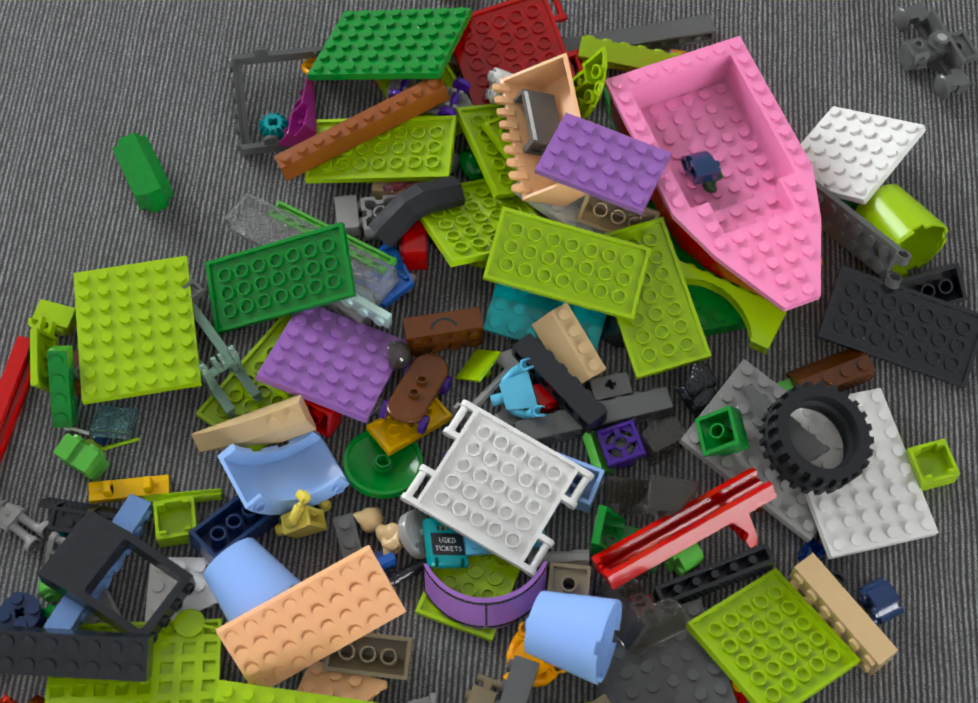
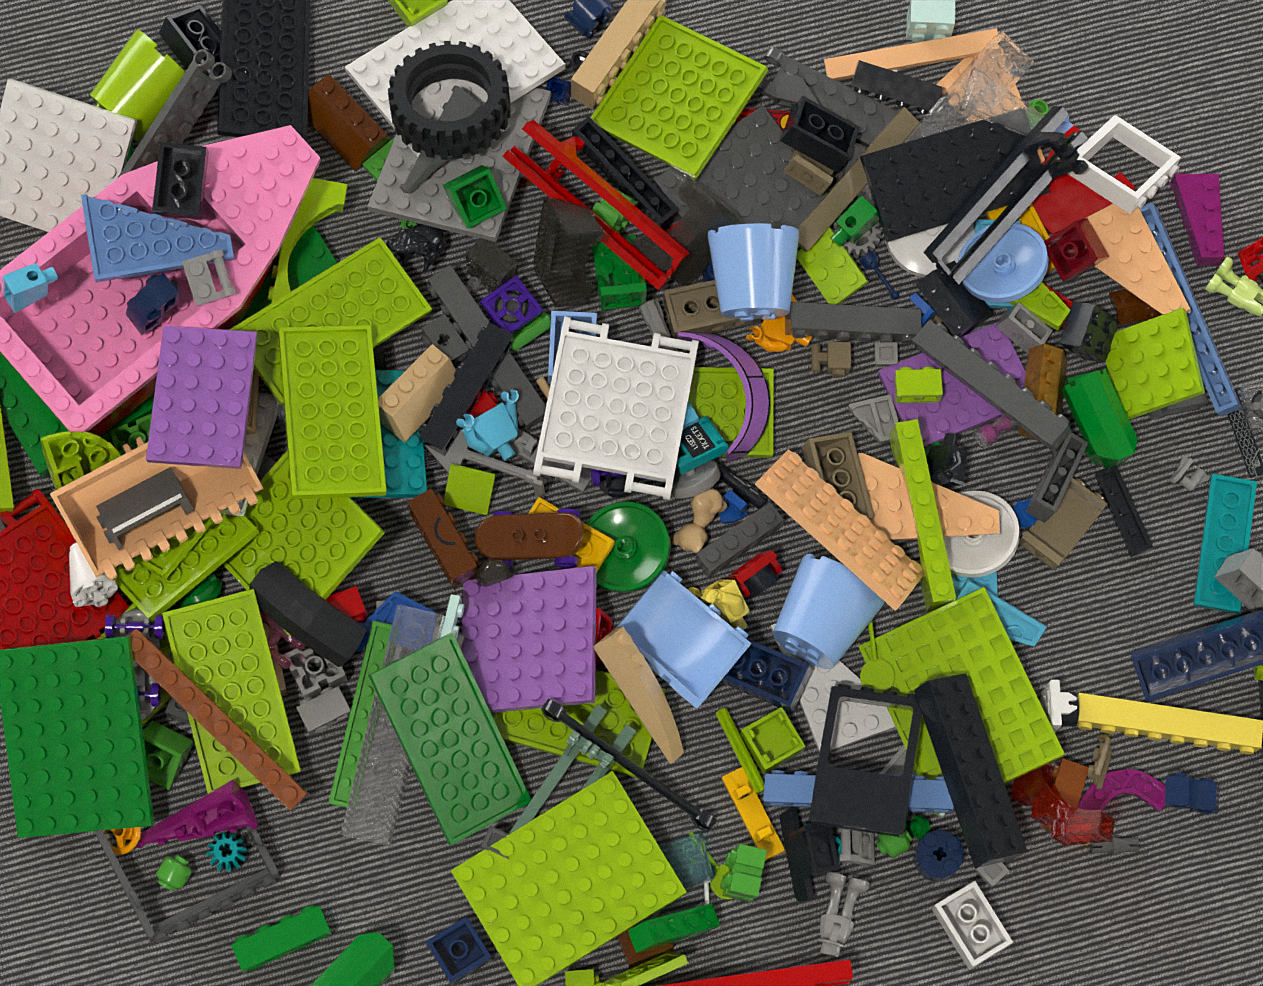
camera: 115 degrees left, 10 degrees up
(127, 244) = (458, 951): none -> dark blue brick
(196, 142) = (281, 939): none -> green brick
(258, 349) = (698, 816): none -> black piece
(274, 91) = (173, 872): none -> bright green head
(315, 553) = (756, 574): none -> piece
(360, 102) = (165, 753): none -> bright green slope
(700, 187) = (201, 280): none -> light grey plate
(733, 70) = (27, 286): none -> medium azure torso
(746, 158) = (141, 243): none -> medium blue wing
(789, 193) = (180, 180): none -> black brick

